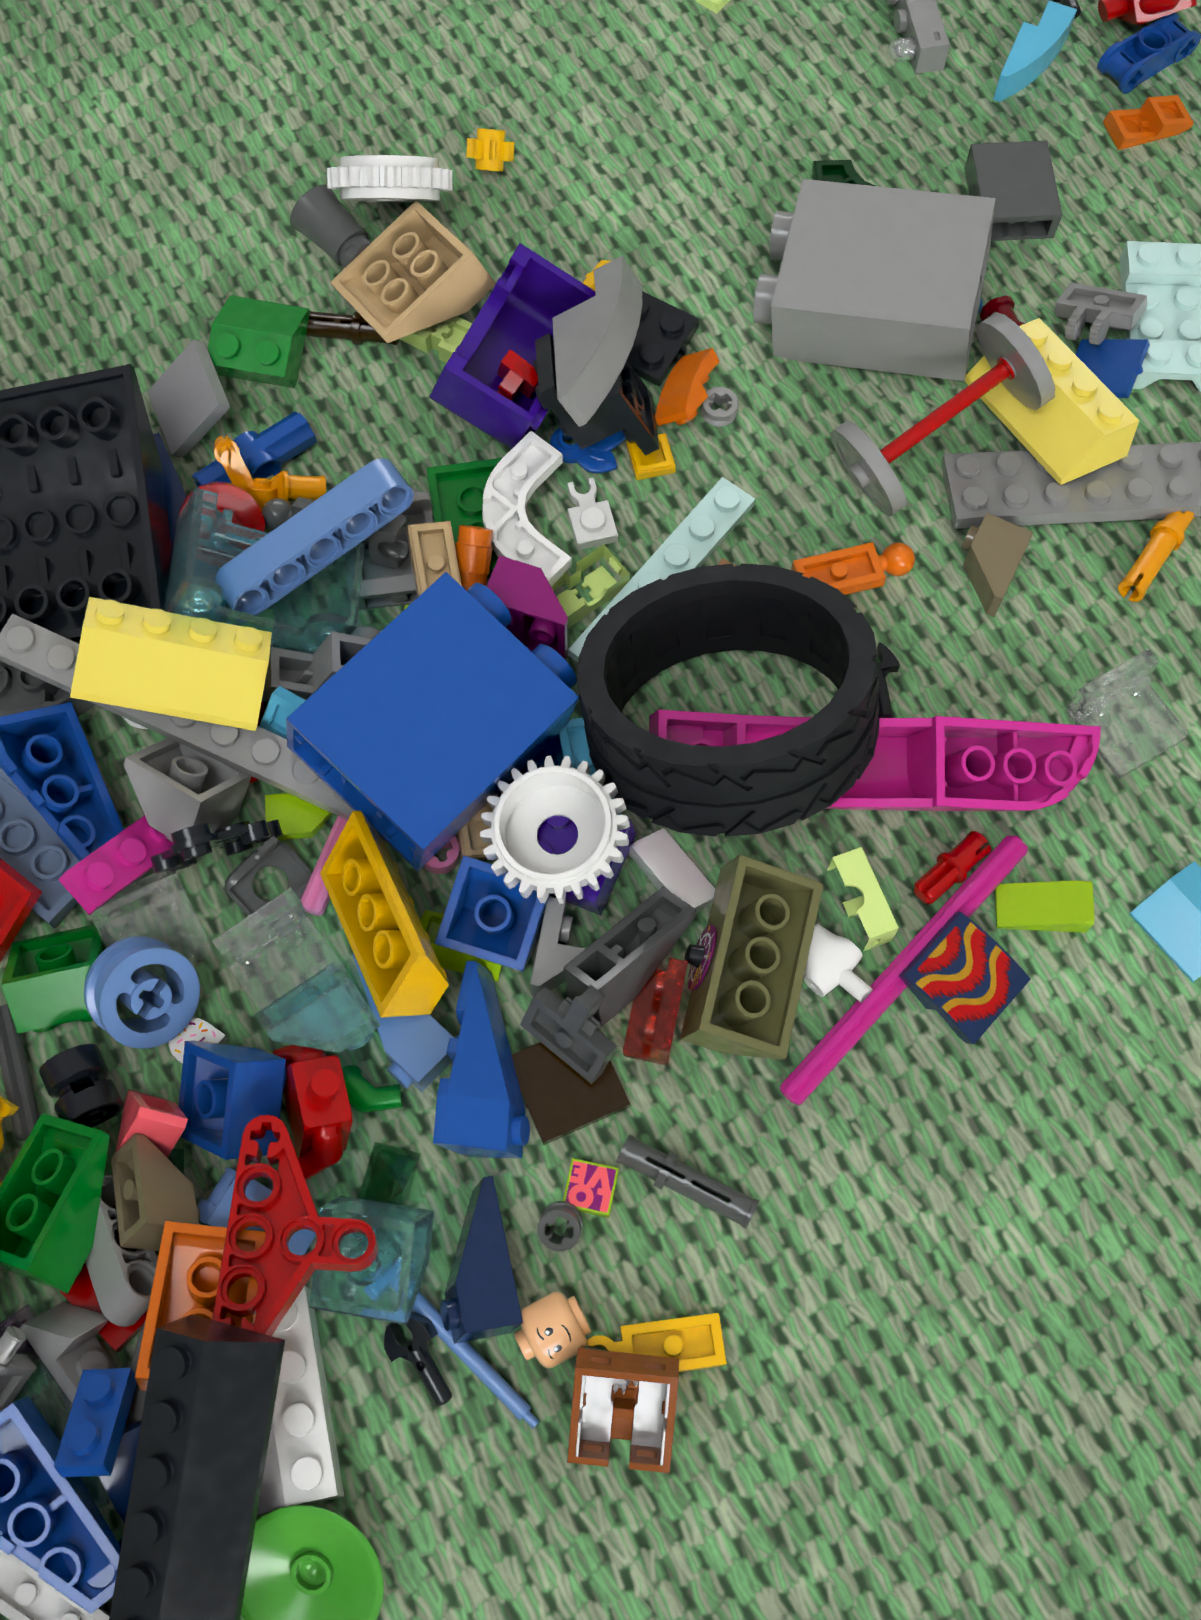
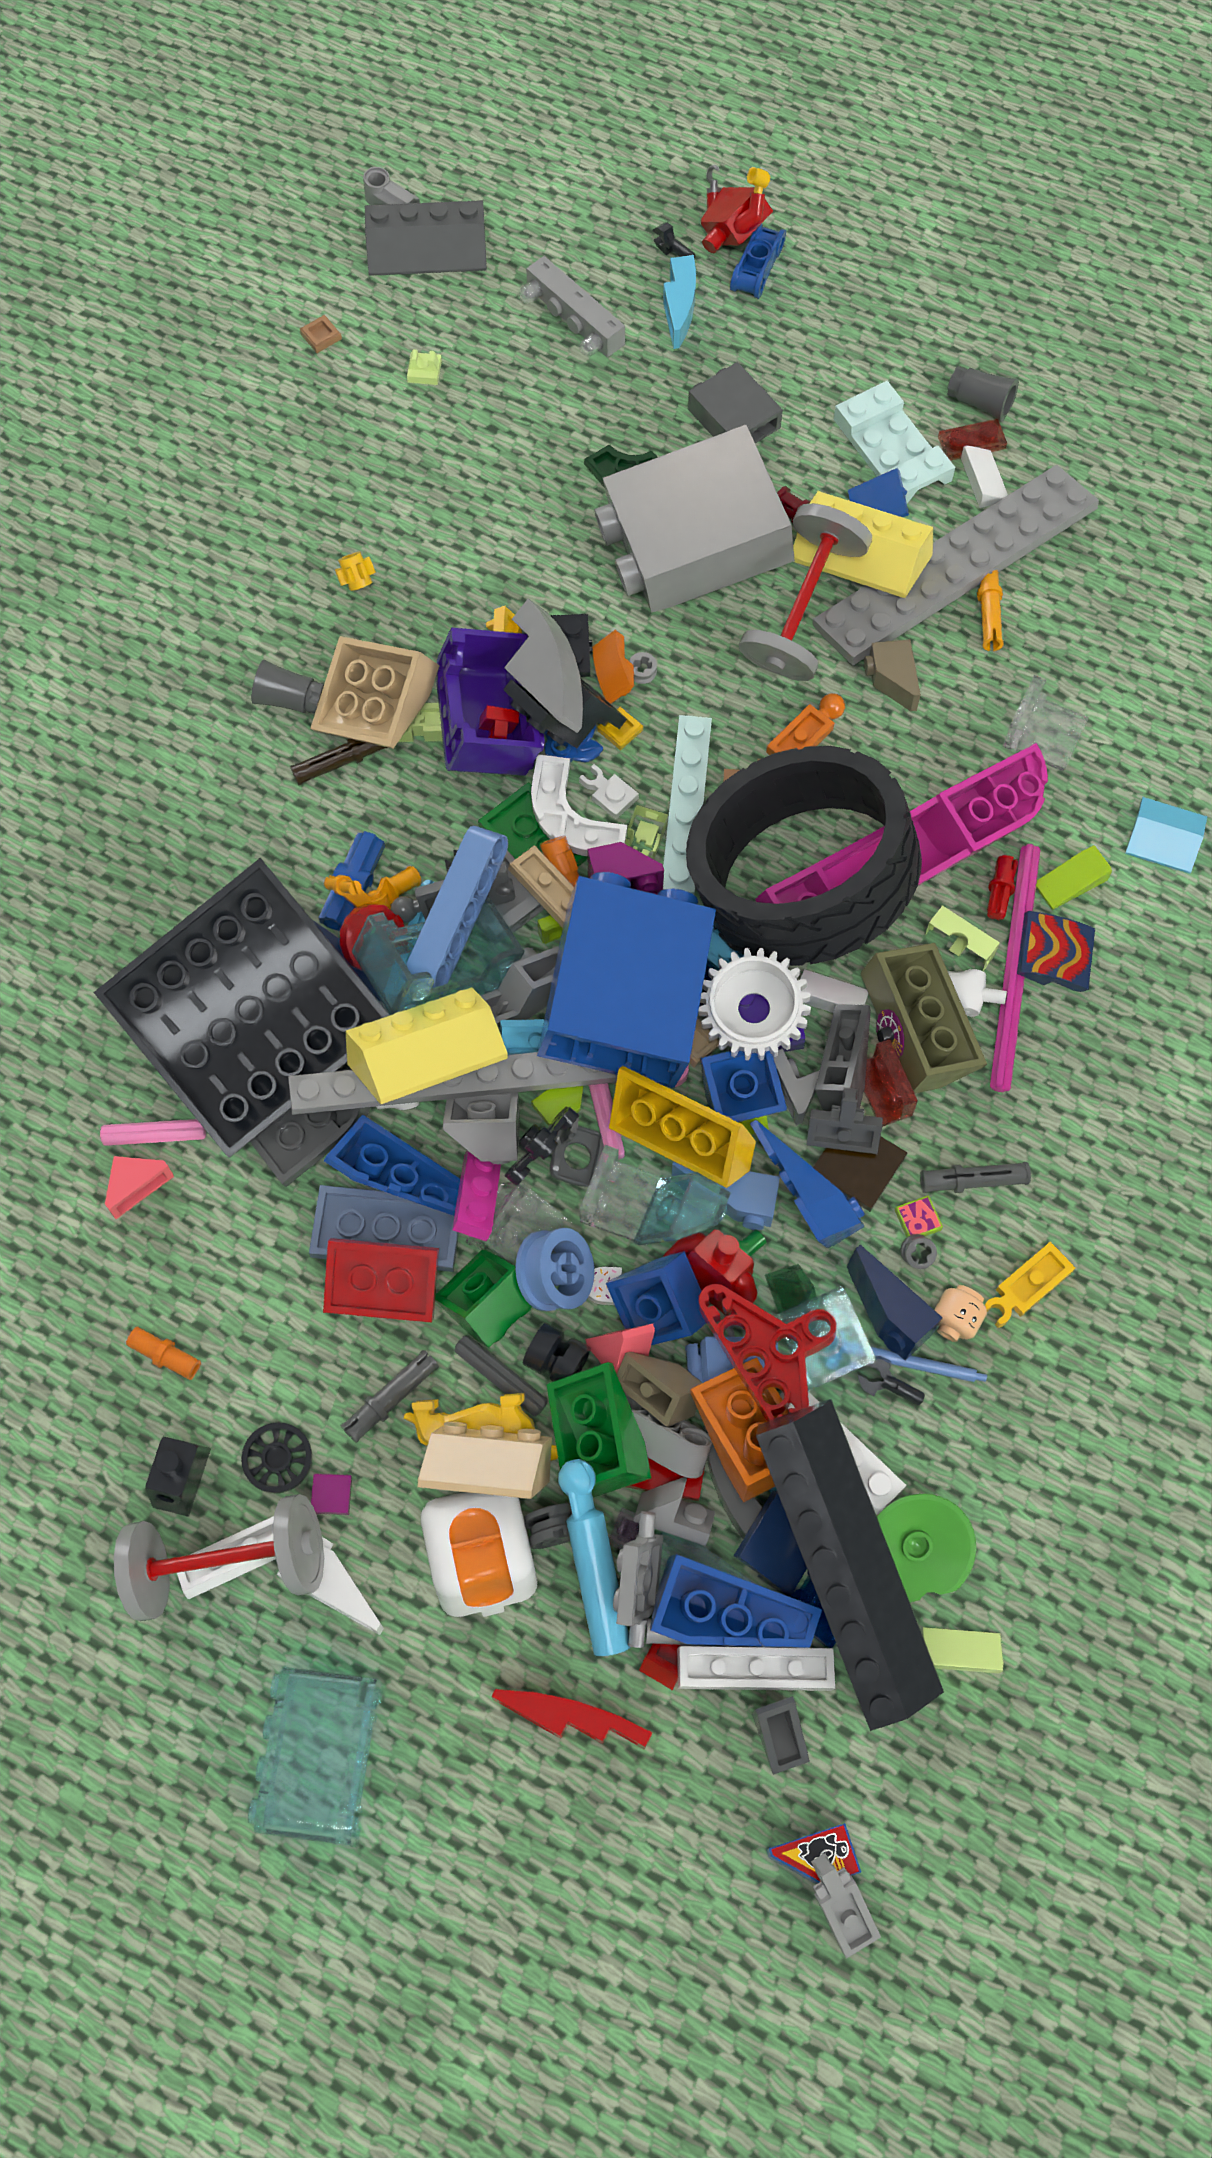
camera: 30 degrees left, 0 degrees up
(96, 1423) = (732, 1535): blue plate -> none
(188, 399) = (284, 855): light grey tile -> none
(258, 341) = (295, 796): green slope -> none
(389, 178) = (309, 631): white gear -> none
(625, 1400) = (1036, 1324): dark orange piece -> none
(1098, 306) = (848, 460): light grey hinge -> none
(1155, 120) = (790, 311): orange slope -> none

